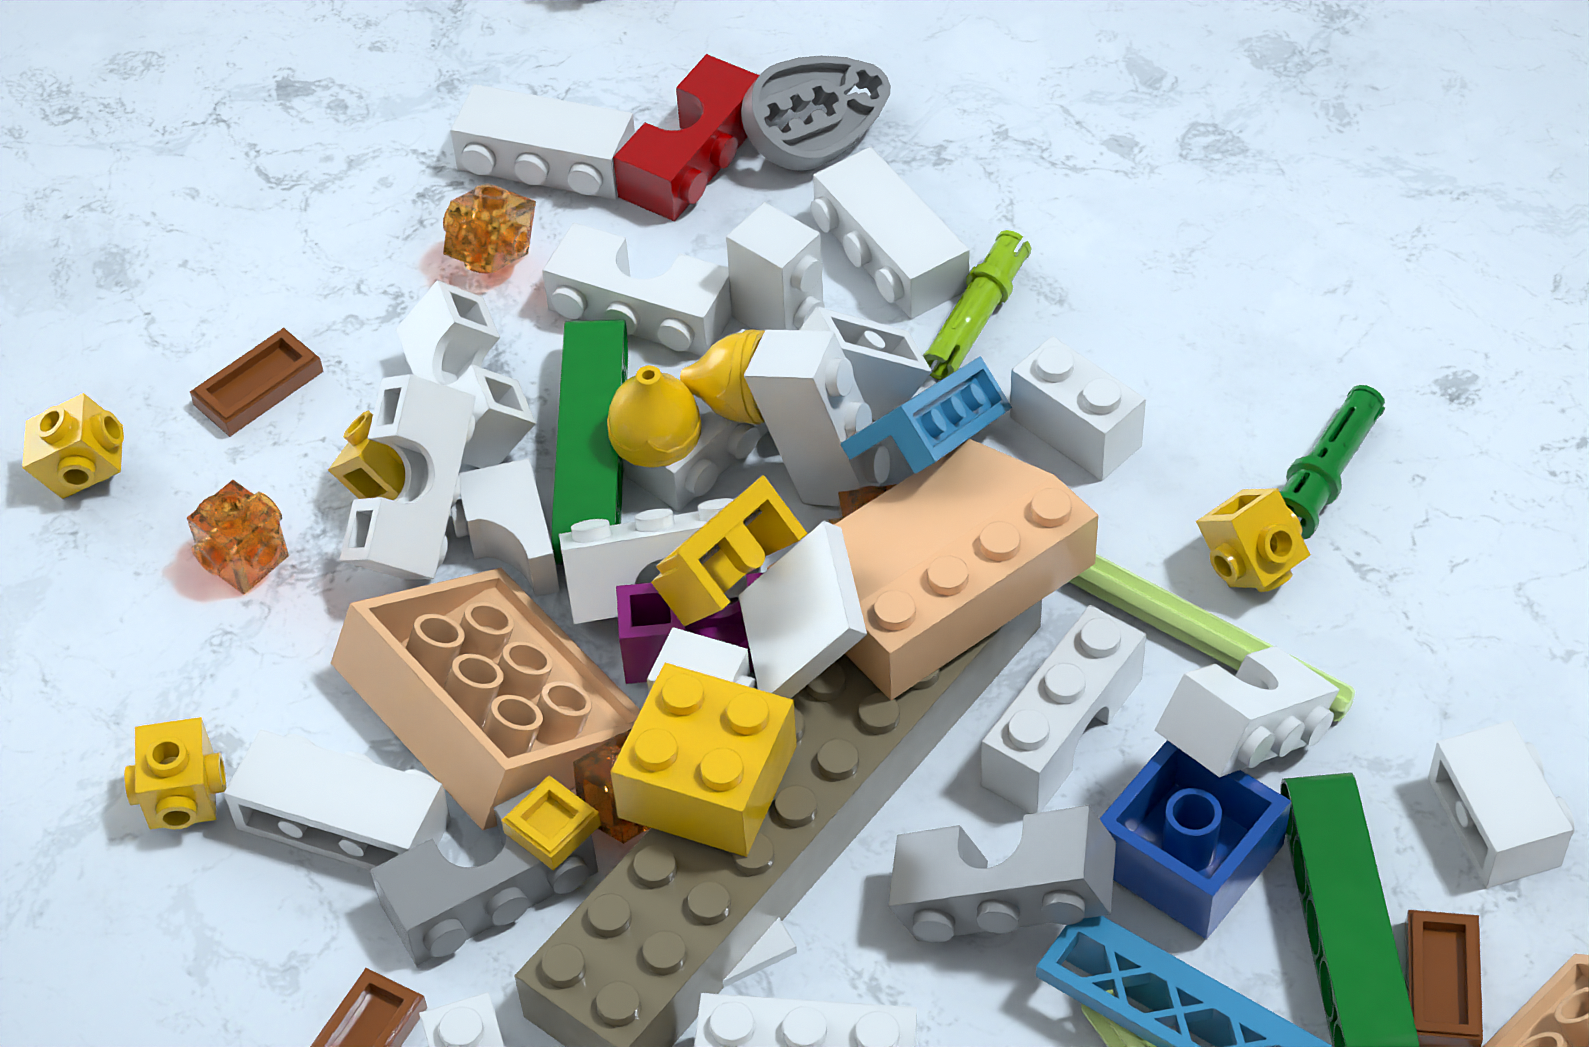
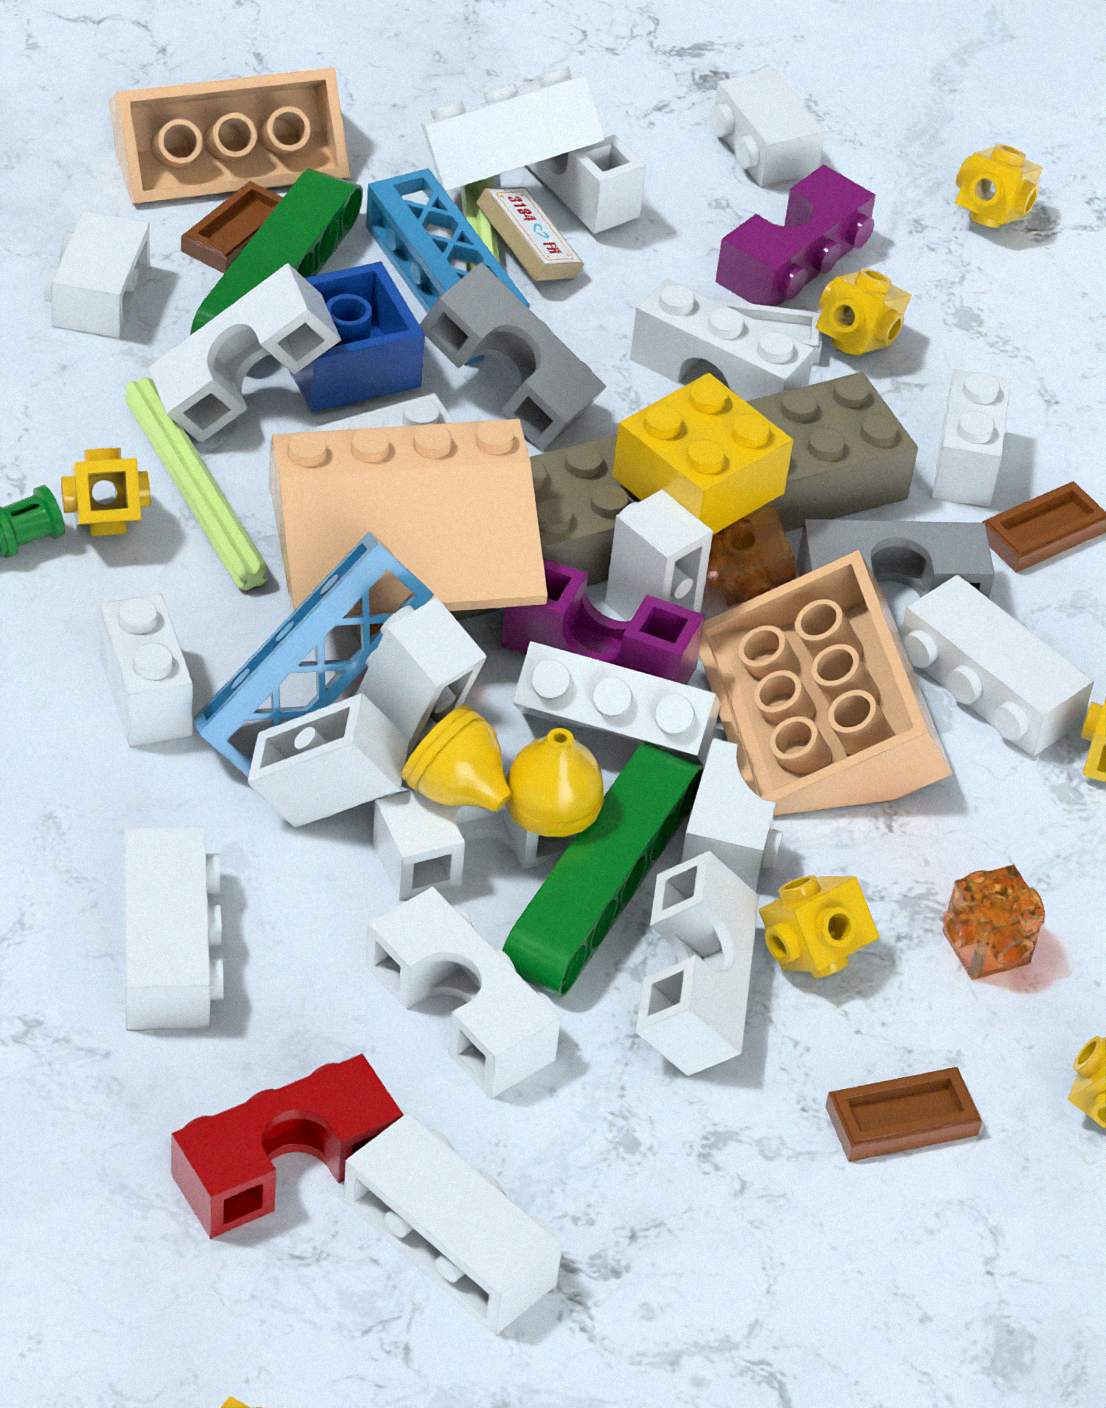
camera: 160 degrees left, 5 degrees down
(429, 432) = (815, 838): white arch -> none
(488, 228) = (582, 1120): clear orange brick -> none
(551, 822) = (834, 528): yellow tile -> none
(724, 551) = (587, 589): yellow window -> none
(774, 270) = (330, 892): white brick -> none
(802, 613) = (560, 500): white tile -> none
(822, 134) = (133, 1093): light grey piece -> none
(986, 288) = (168, 809): lime pin -> none

